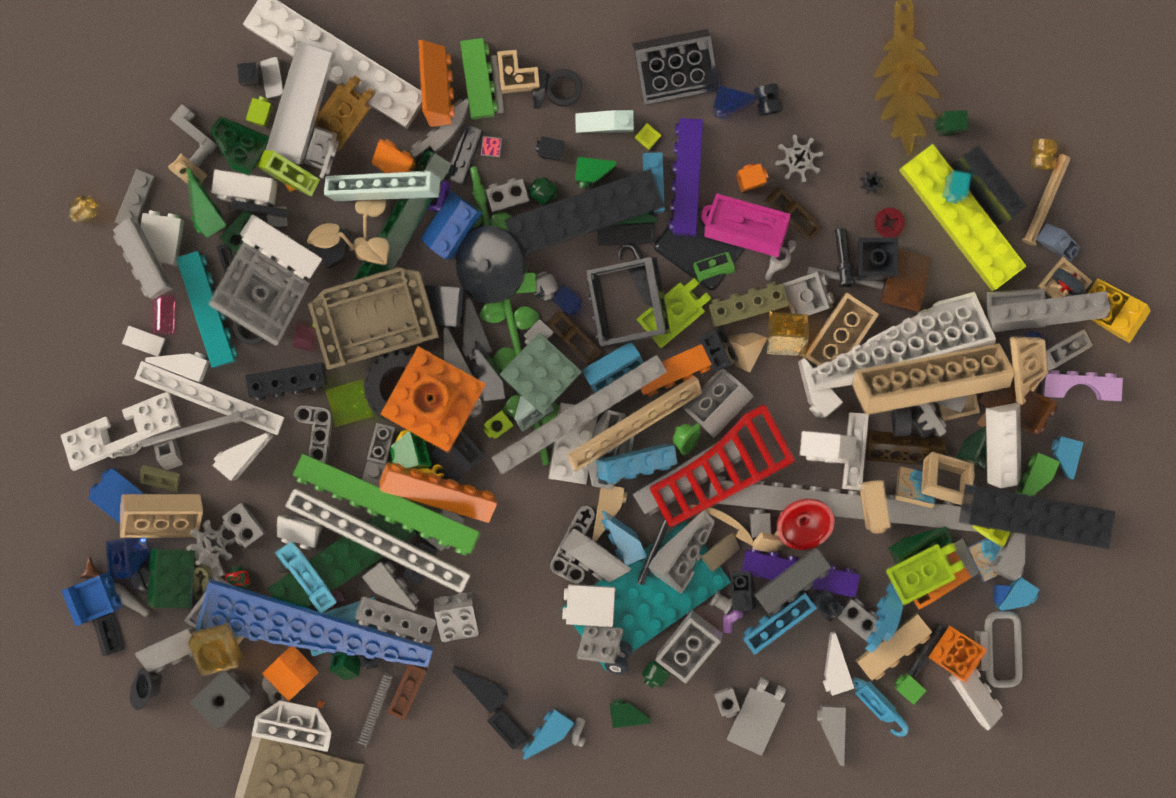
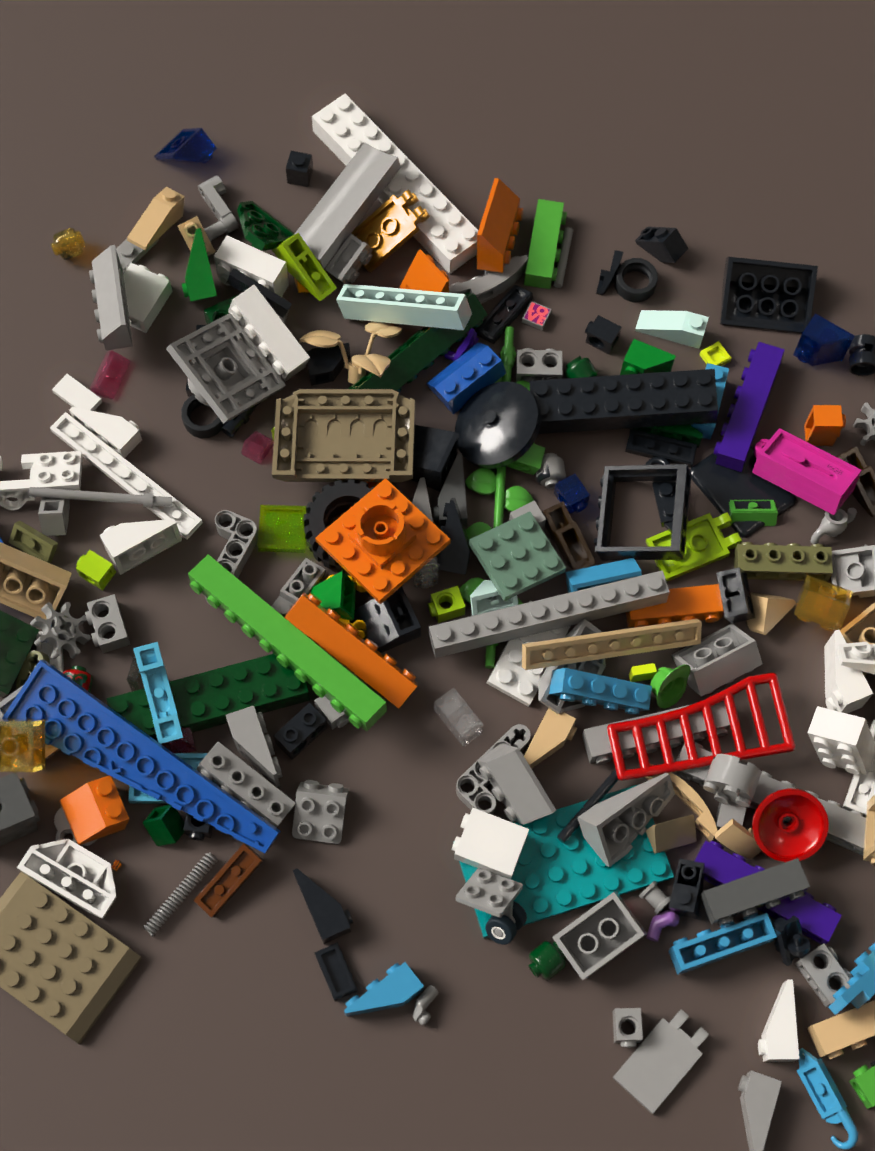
camera: 15 degrees right, 20 degrees down
(146, 86) = (188, 146): none -> clear blue slope
(148, 164) = (158, 217): none -> tan slope
(209, 320) = (160, 384): teal brick -> none
(216, 485) = (95, 569): none -> lime brick
(259, 111) = (296, 208): lime brick -> none
(272, 77) = (322, 180): light grey slope -> none
(286, 380) = (219, 482): black brick -> none
(299, 531) = (175, 643): white slope -> none
(378, 540) = (262, 678): white brick -> none
(515, 79) = (586, 252): tan brick -> none
(535, 513) = (458, 717): none -> clear brick
(575, 46) = (662, 243): none -> black slope
(625, 538) = (558, 781): dark azure slope -> none
(626, 714) = (493, 1000): dark green slope -> none
(664, 431) = (642, 672): none -> neon yellow tile
(753, 505) = (732, 780): none -> light grey brick

